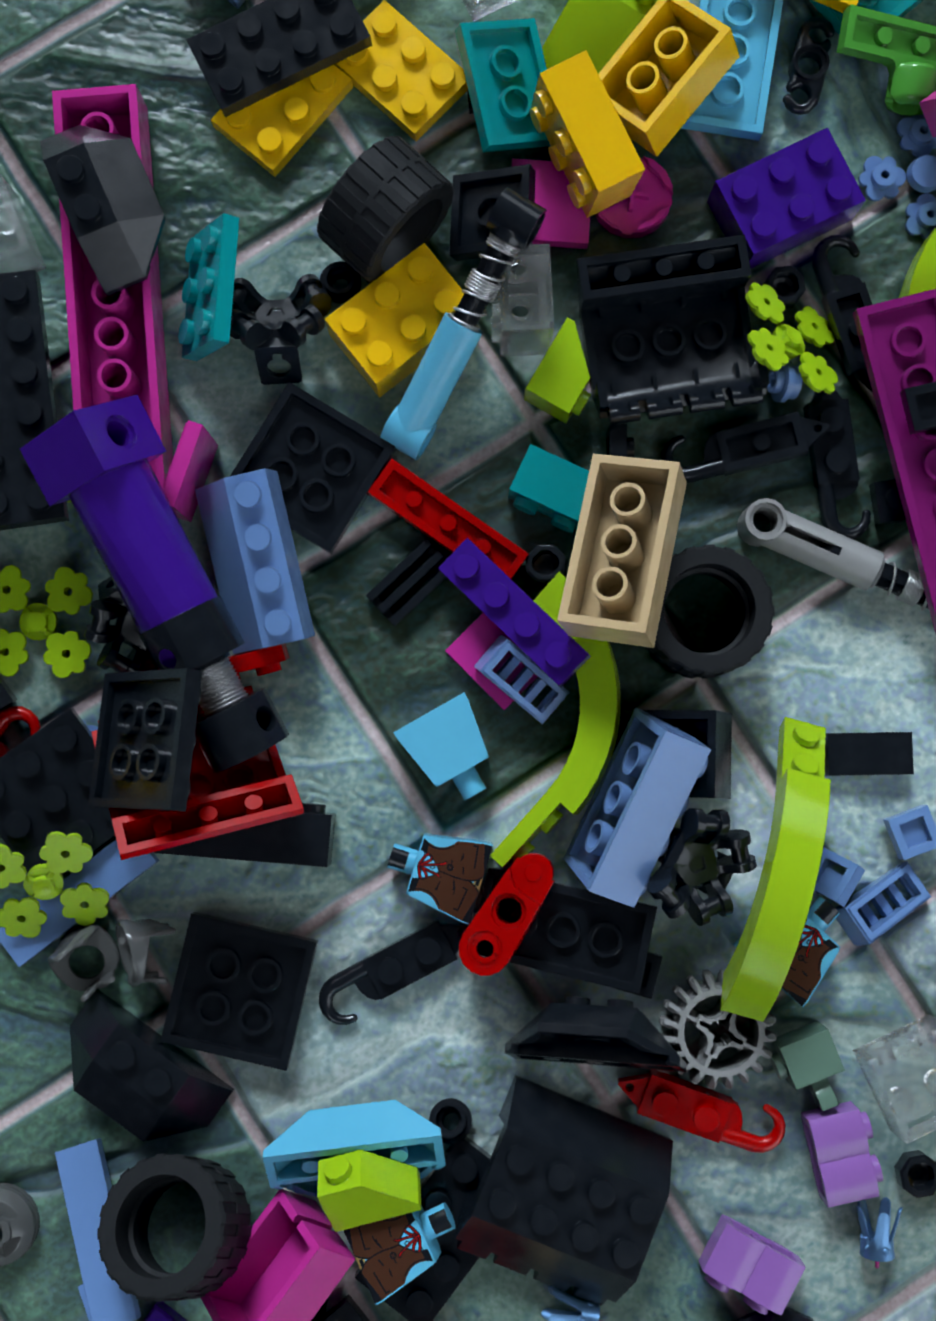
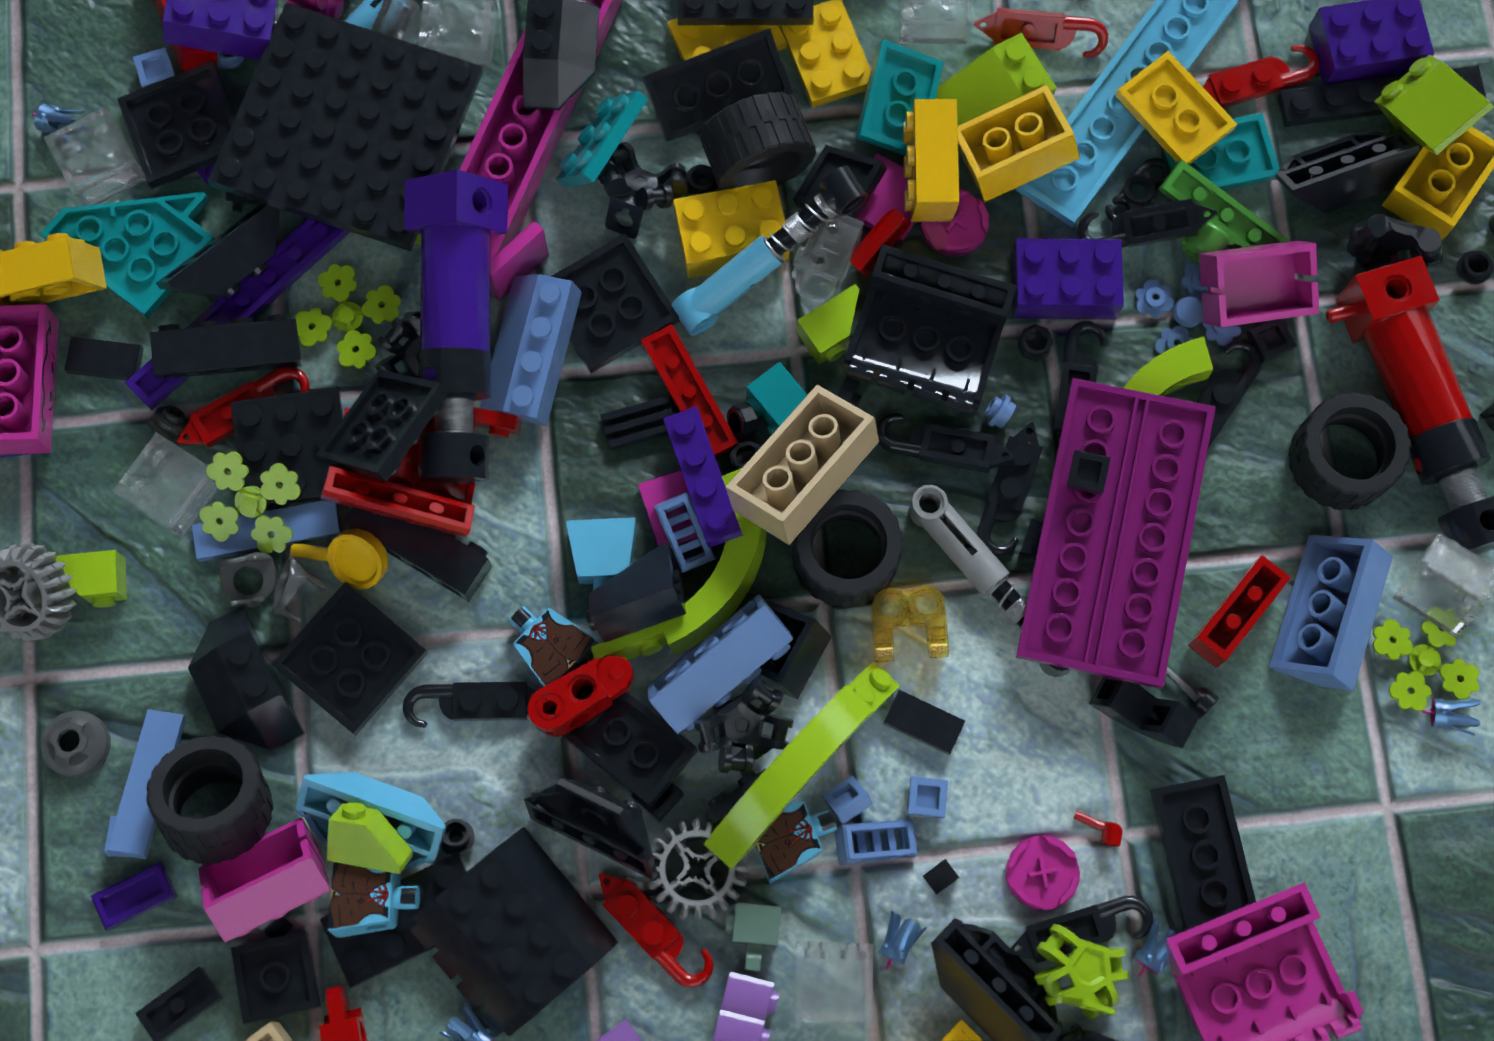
camera: 25 degrees right, 10 degrees down
(182, 882) = (352, 557): none -> yellow piece
(300, 163) = (704, 85): none -> black plate
(514, 777) = (638, 596): none -> black slope
(520, 526) = (742, 420): none -> black tile
(566, 252) = (885, 232): none -> red piece
(713, 946) = (723, 803): none -> black plate
(787, 342) = (1014, 380): lime plant -> none
(831, 646) = (908, 615): none -> clear yellow piece
(848, 93) = (1154, 223): none -> black plate

